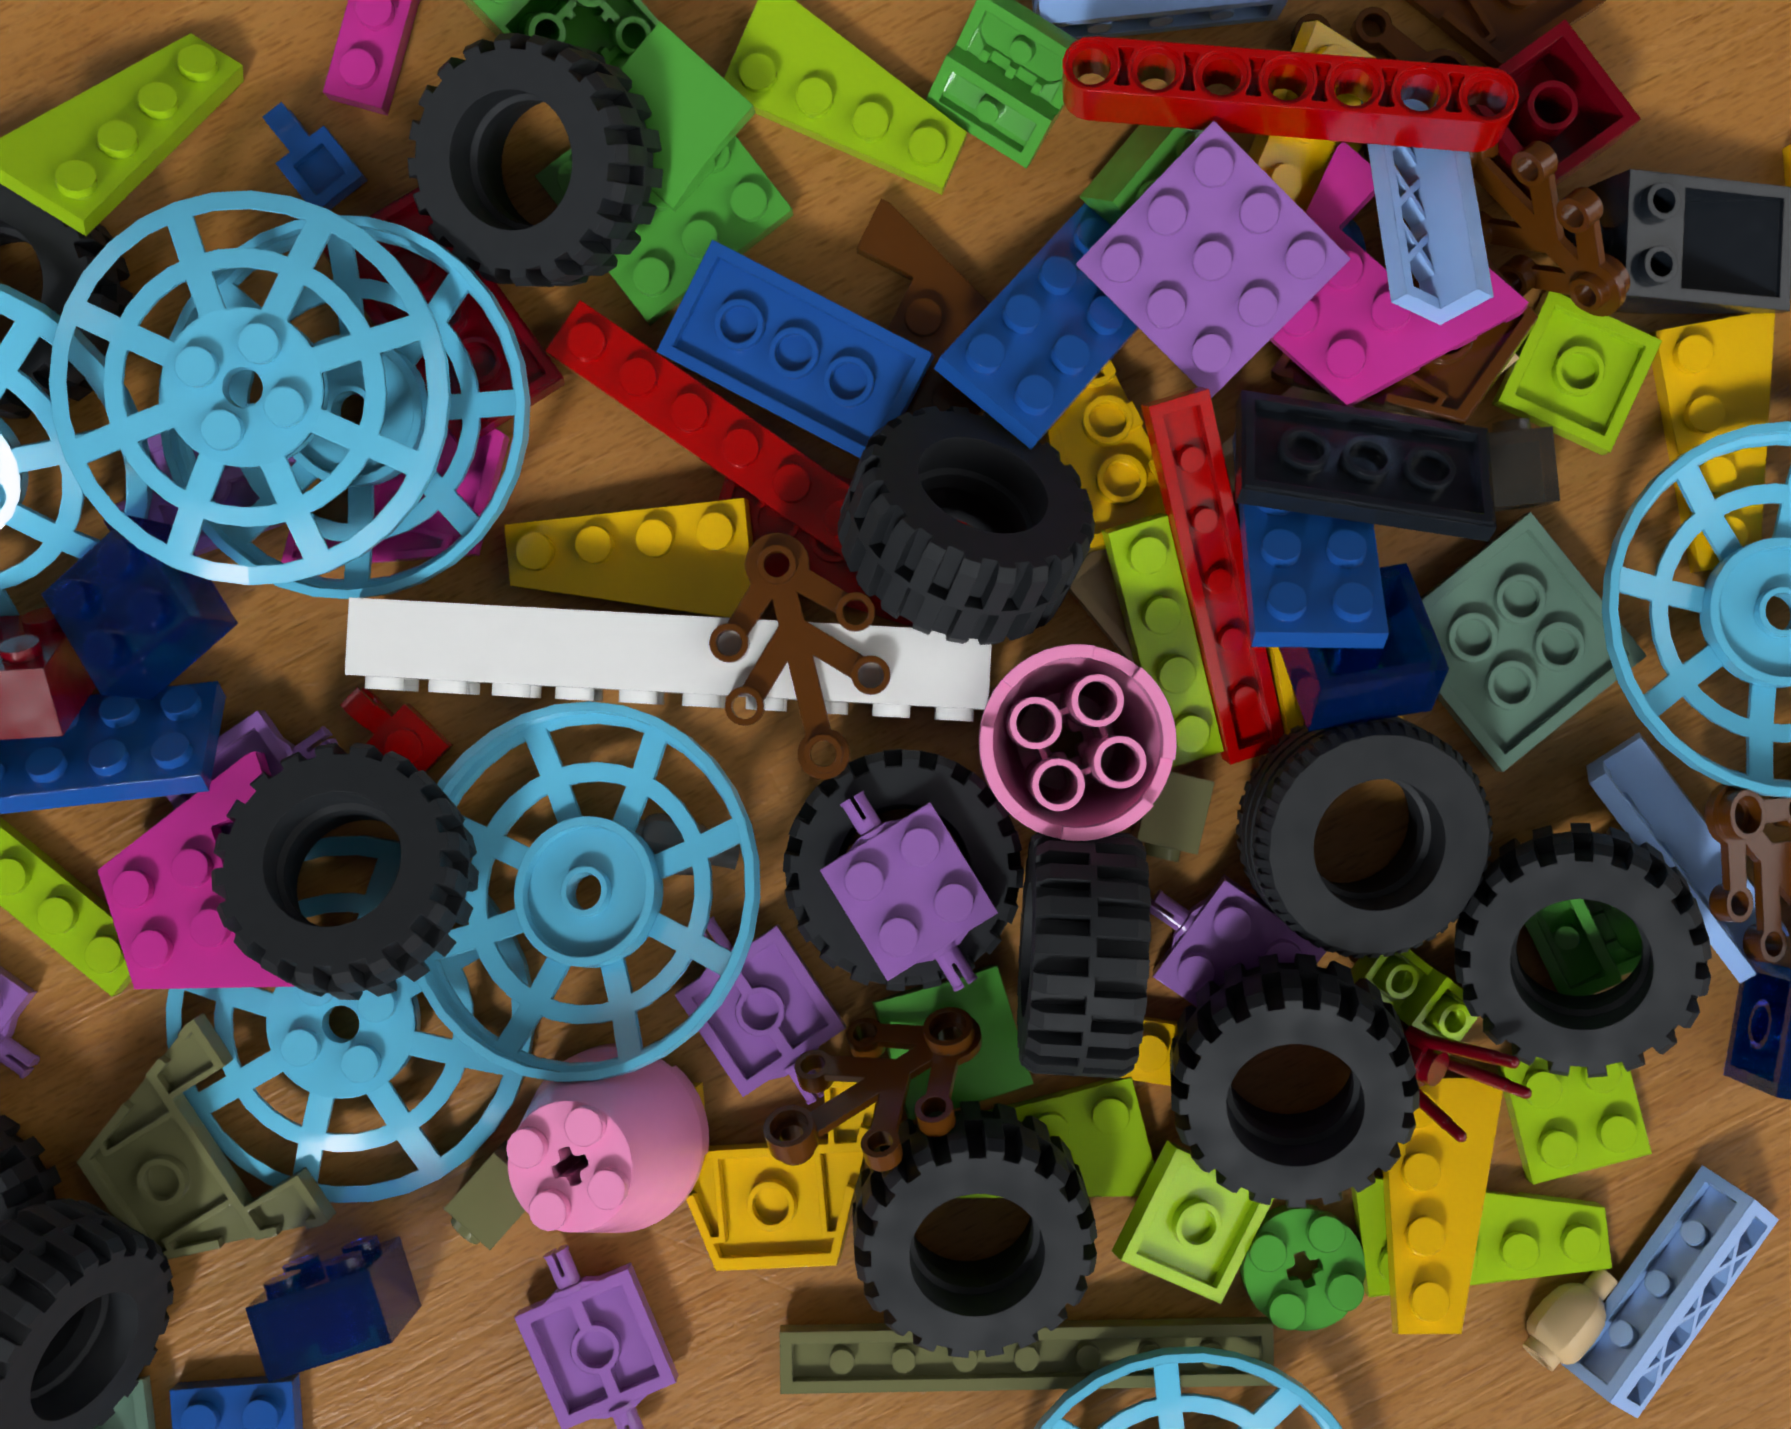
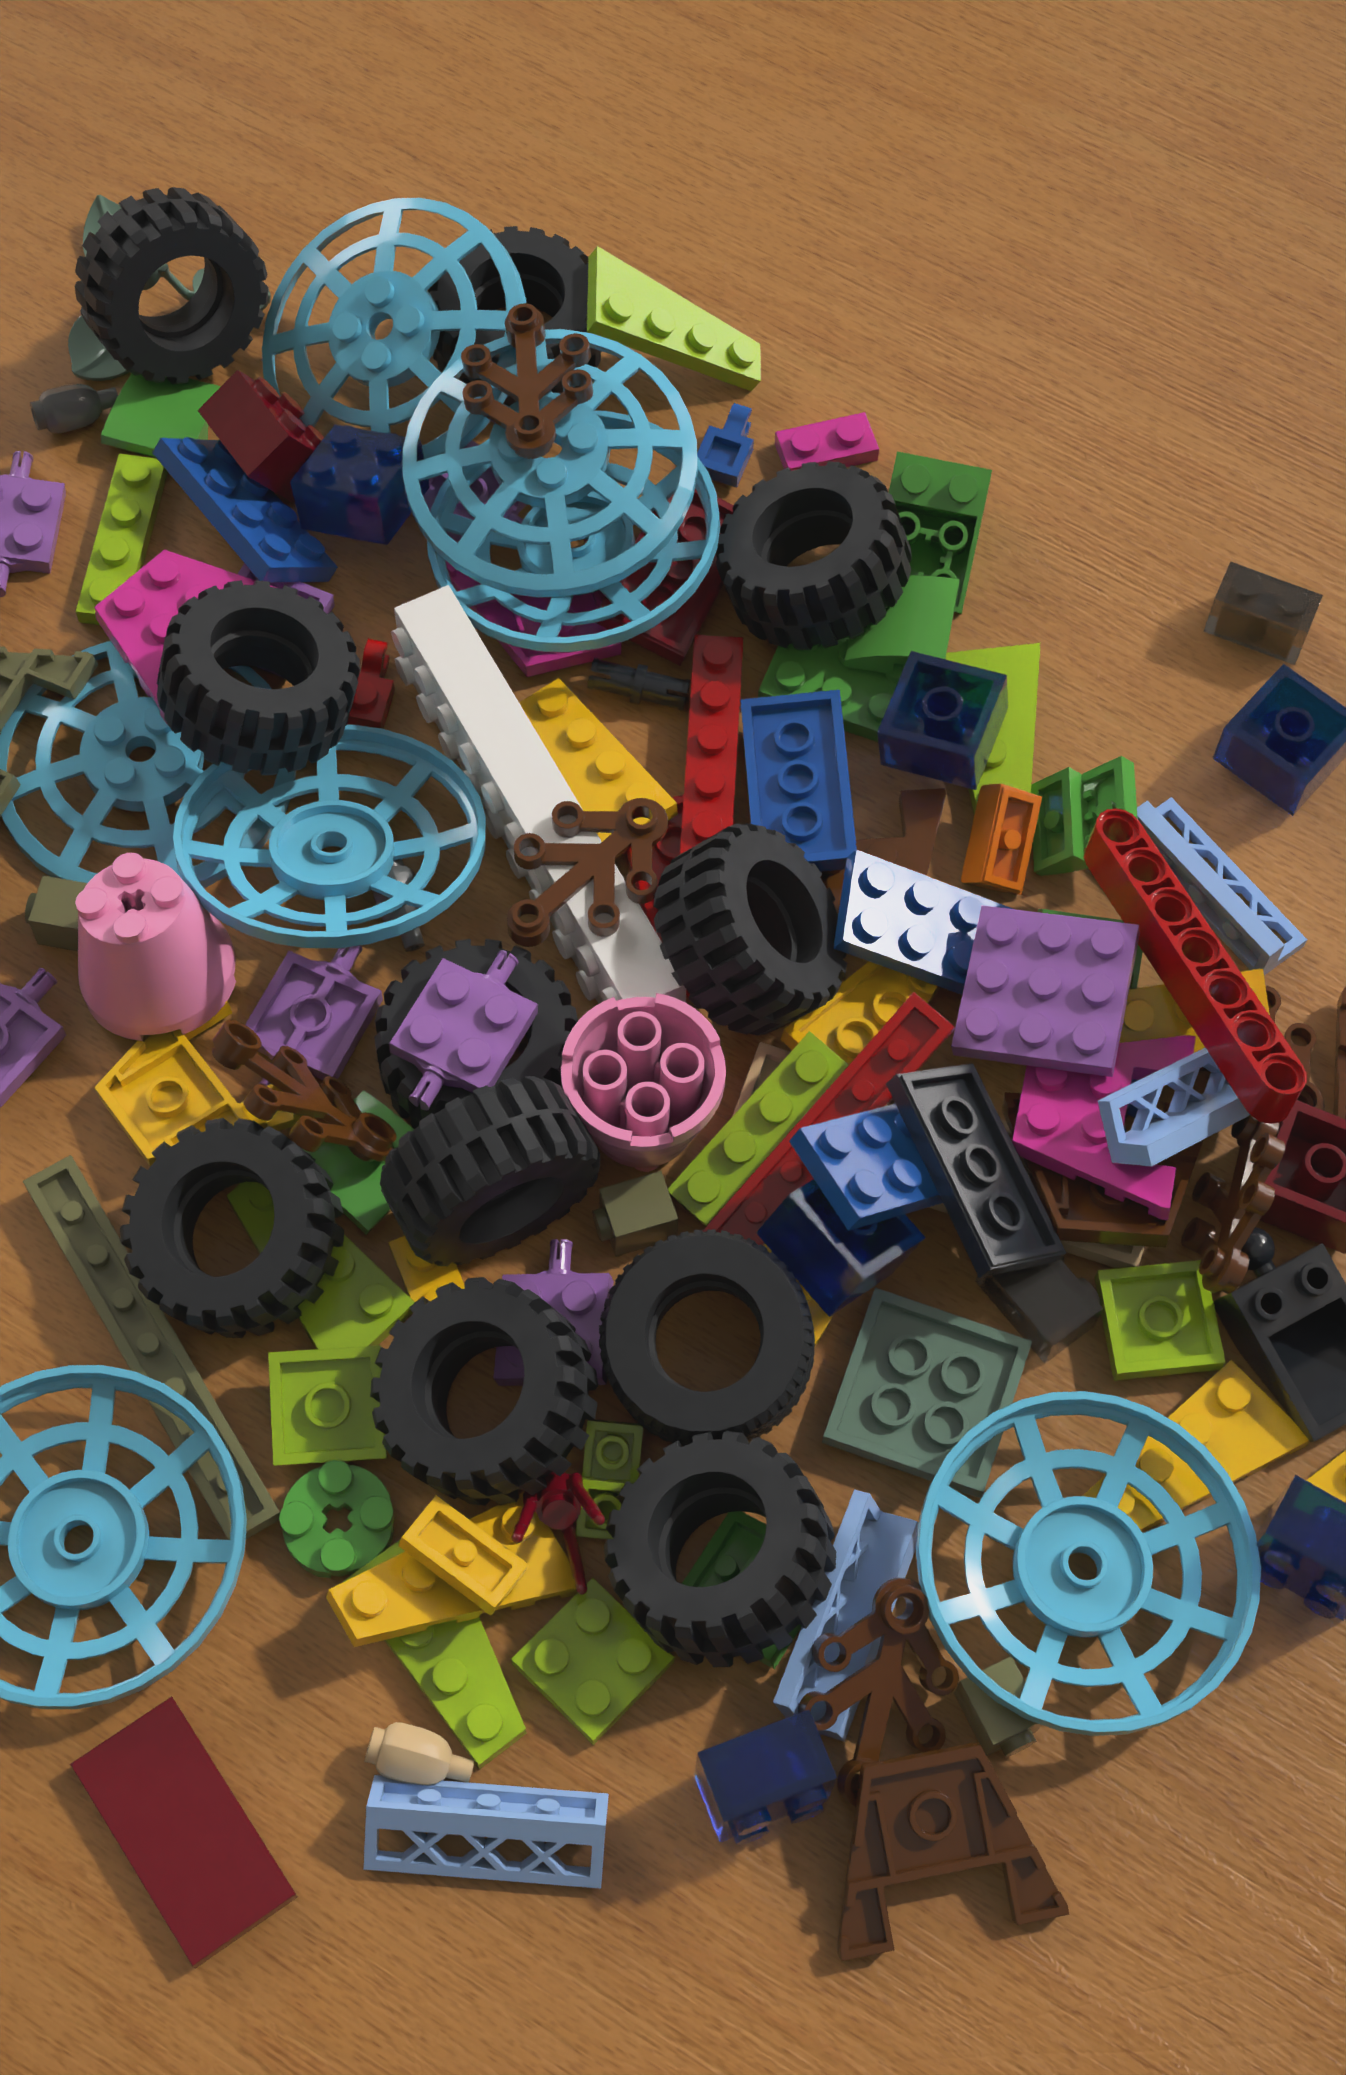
camera: 55 degrees right, 25 degrees down
(154, 366) = (532, 429): none -> reddish brown plant
(564, 442) = (638, 684): none -> black pin
(821, 153) = (943, 720): none -> clear blue brick
(977, 180) = (1001, 838): none -> orange slope
(1443, 1192) = (463, 1555): none -> yellow plate

